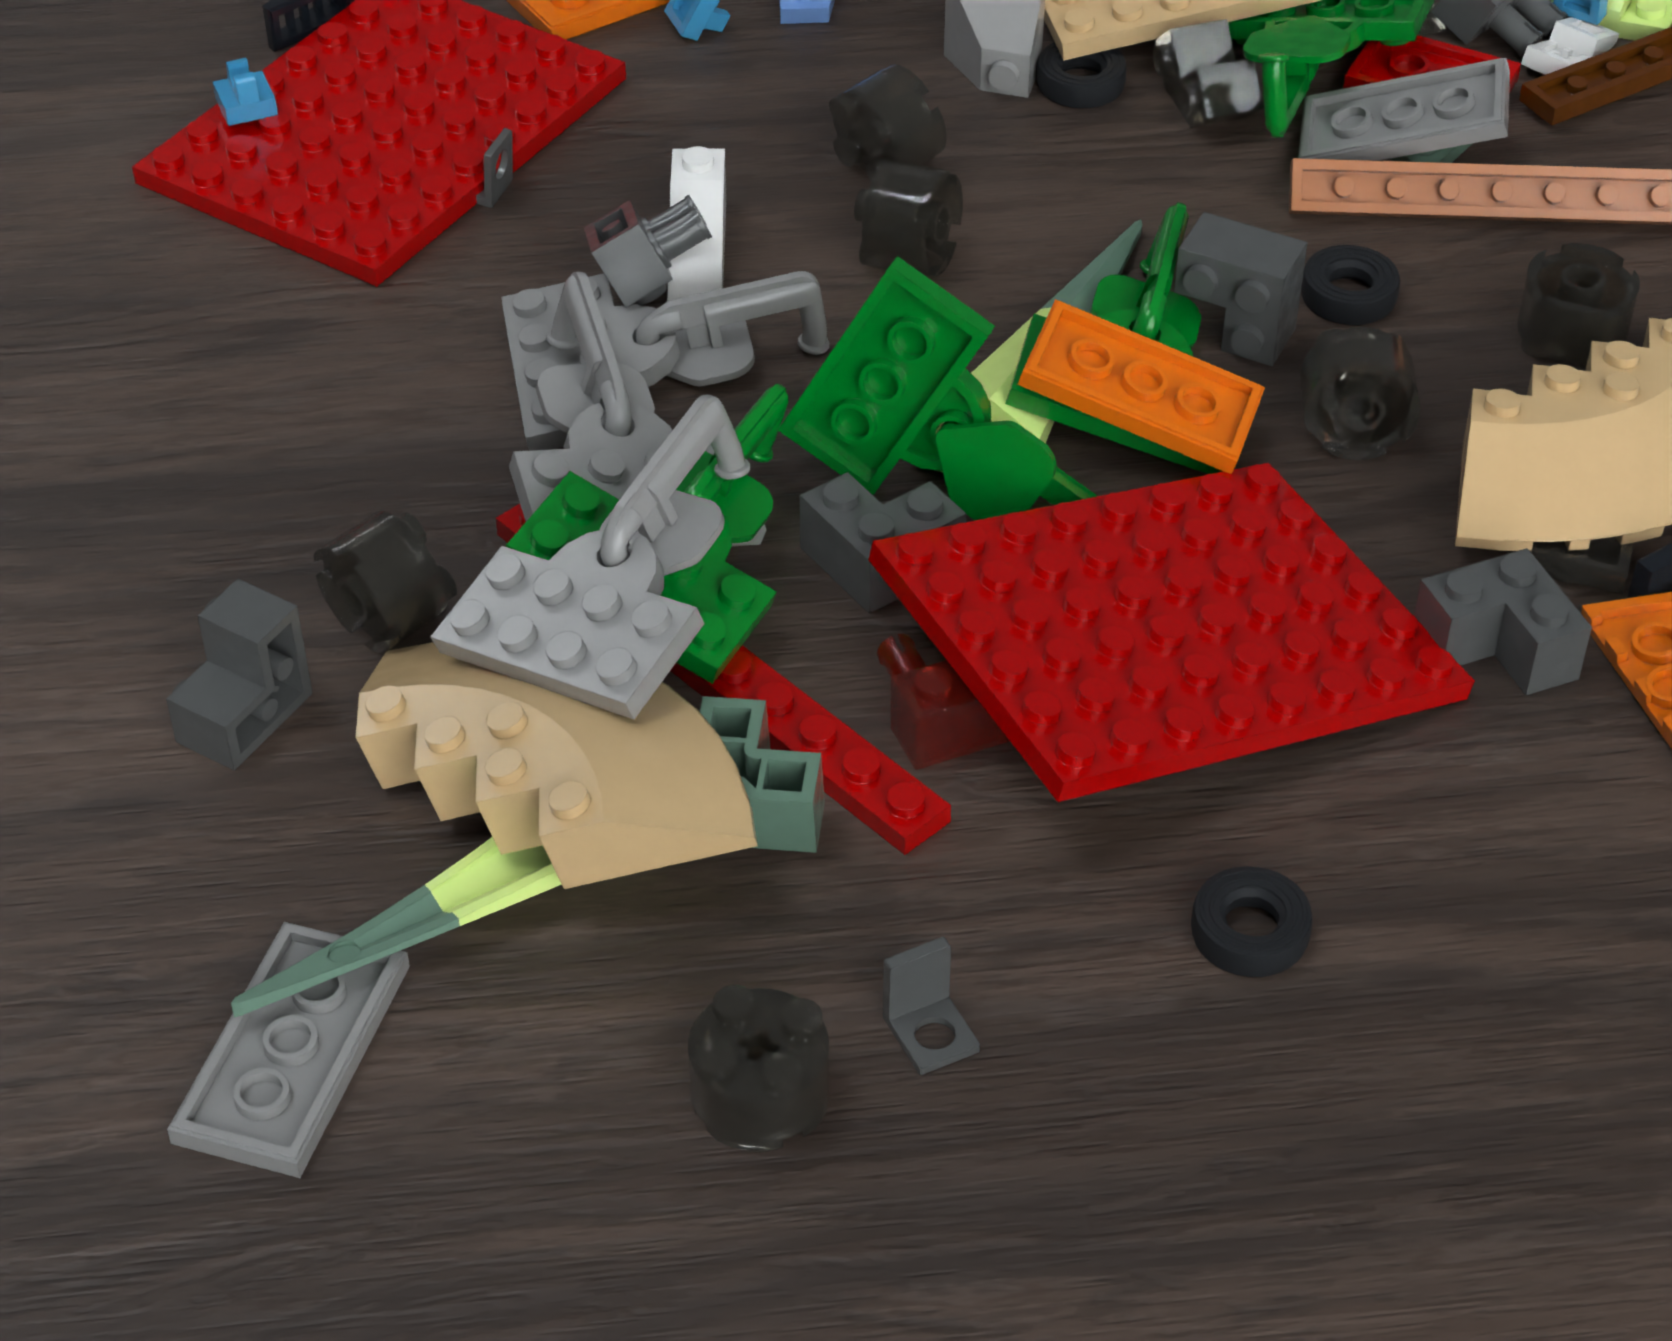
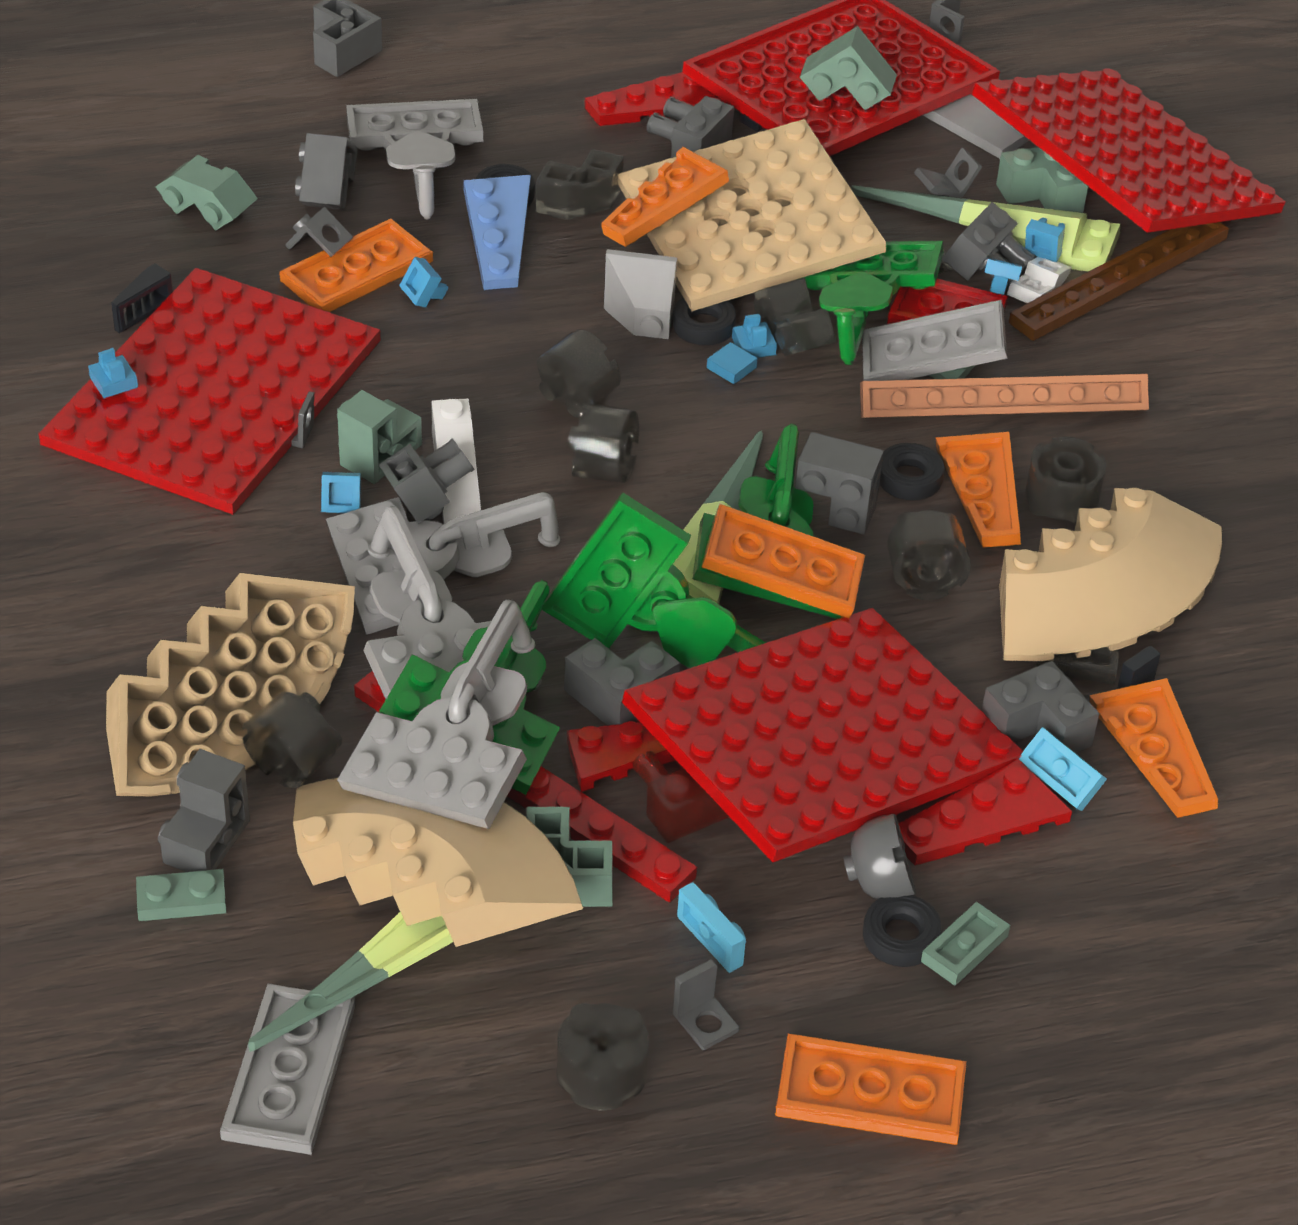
camera: 10 degrees left, 0 degrees up
(188, 787) = (180, 895): none -> sand green plate
(384, 441) = (234, 662): none -> tan brick
(527, 262) = (340, 492): none -> dark azure tile
(584, 180) = (373, 432): none -> sand green brick
(848, 632) = (610, 751): none -> red wing
(958, 893) = (711, 927): none -> medium azure plate
(1112, 131) = (732, 363): none -> dark azure tile
(1148, 101) = (754, 337): none -> dark azure tile
(1172, 1156) = (871, 1089): none -> orange tile
(1230, 813) = (880, 859): none -> dark grey cylinder
(1347, 948) = (965, 943): none -> sand green plate
(1394, 762) = (982, 813): none -> red wing
(1457, 307) = (985, 484): none -> orange wing
(1514, 29) = (1002, 272): none -> dark azure tile
(1527, 706) = (1062, 769): none -> medium azure plate

